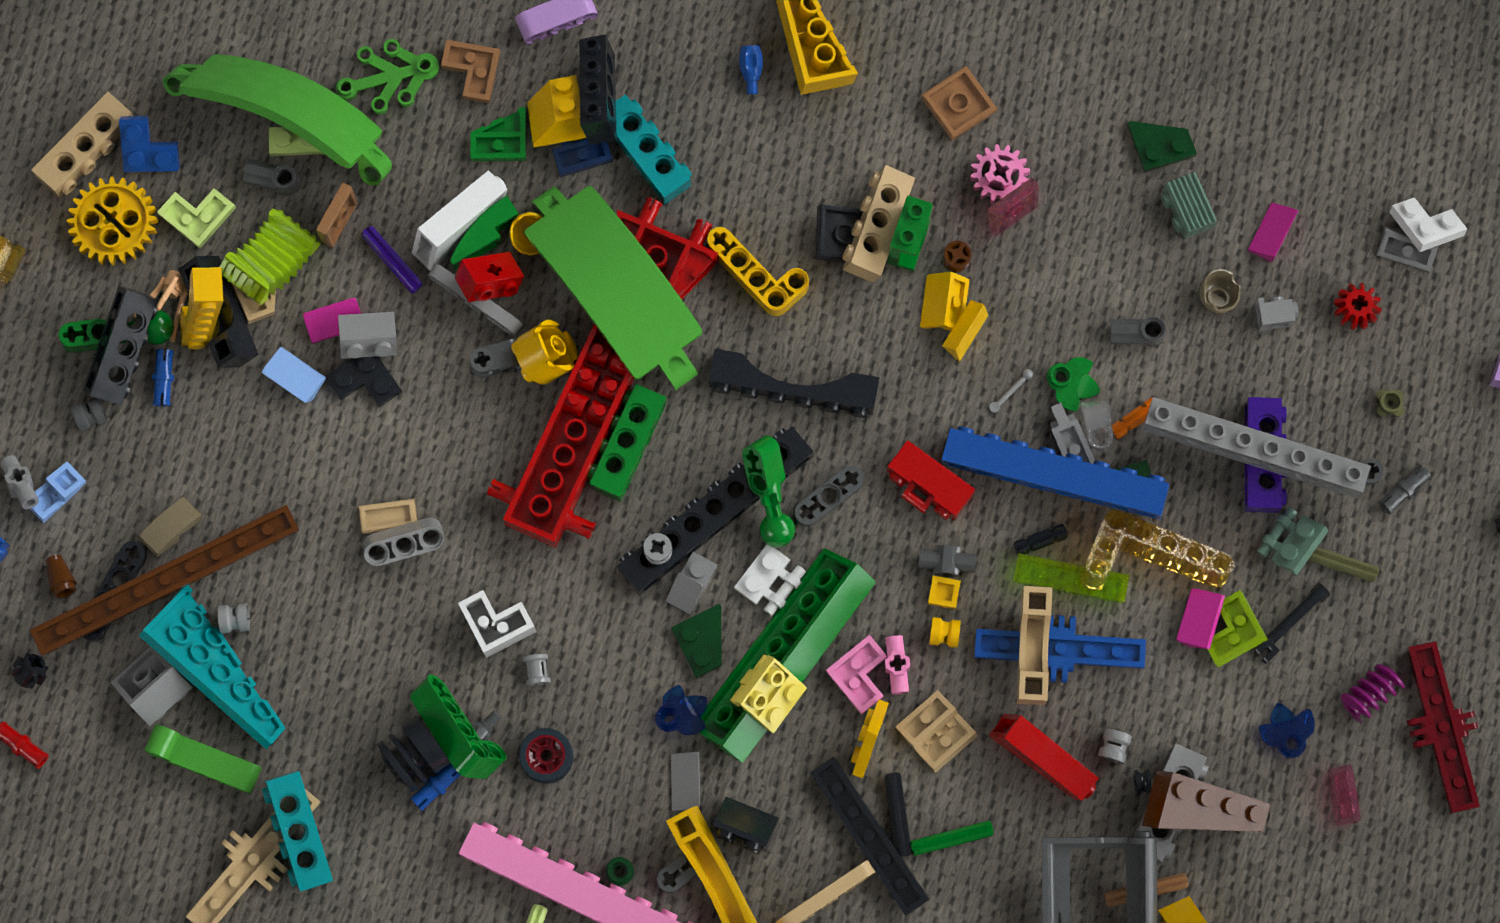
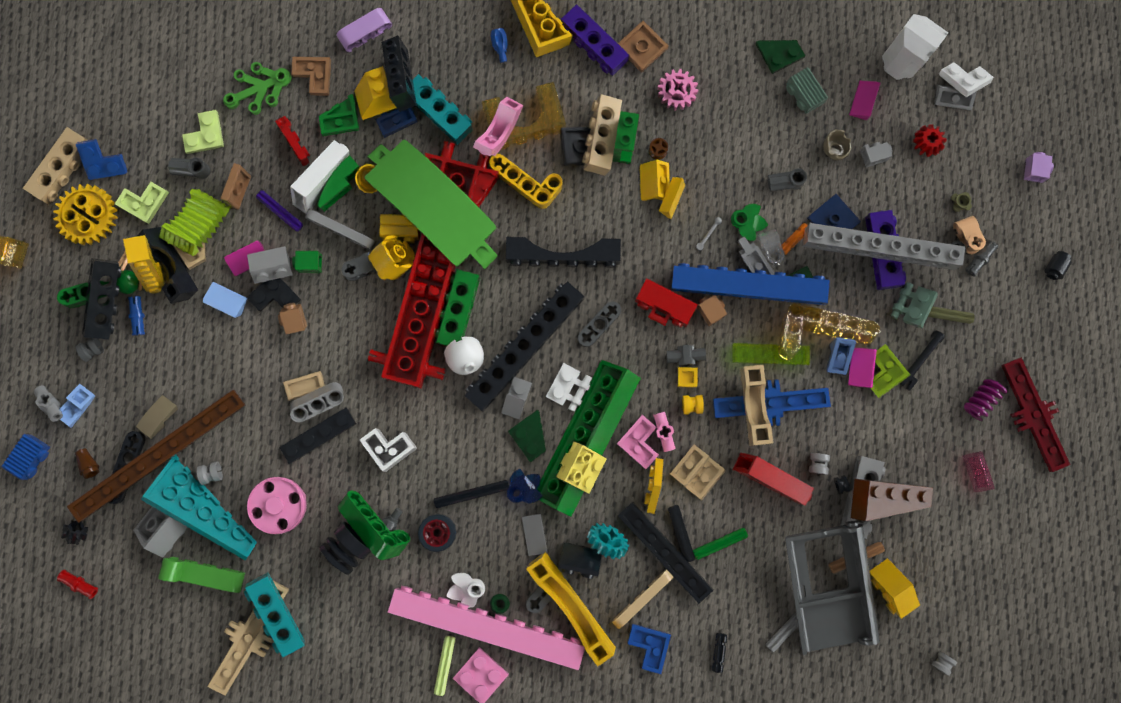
camera: 10 degrees left, 5 degrees up
(290, 101) = (195, 115): bright green panel -> none
(323, 679) = (276, 505): none -> bright pink piece
(387, 416) = (292, 318): none -> medium nougat brick
(396, 590) = (317, 435): none -> black plate
(421, 339) = (307, 261): none -> green brick
(427, 159) = (293, 139): none -> red hinge
(435, 787) = (364, 567): blue pin -> none
(489, 277) = (345, 212): red brick -> none
(536, 669) = (421, 474): light grey bush -> none
(561, 308) = (399, 226): none -> yellow brick
(569, 842) = (463, 590): none -> white plate
(603, 709) = (471, 494): none -> black axle
(626, 508) = (464, 356): none -> white cylinder
(660, 553) = (492, 382): light grey wheel -> none
(730, 192) = (500, 127): none -> bright pink arch
(737, 199) = (549, 122): none -> clear yellow arch
(764, 477) = (554, 319): green beam -> none
(789, 804) = (607, 541): none -> teal gear
(870, 47) = (578, 18): none -> dark purple brick
(996, 500) = (712, 309): none -> medium nougat brick
(1013, 207) = (691, 109): clear pink plate -> none
(1041, 539) = (745, 331): black axle -> none
(1171, 596) = (840, 355): none -> medium blue slope
(1200, 392) = (834, 213): none -> dark blue plate
(1288, 726) = (930, 430): clear blue plate -> none
(1347, 168) = (913, 47): none -> white brick
(1390, 449) = (969, 233): none -> light nougat piece

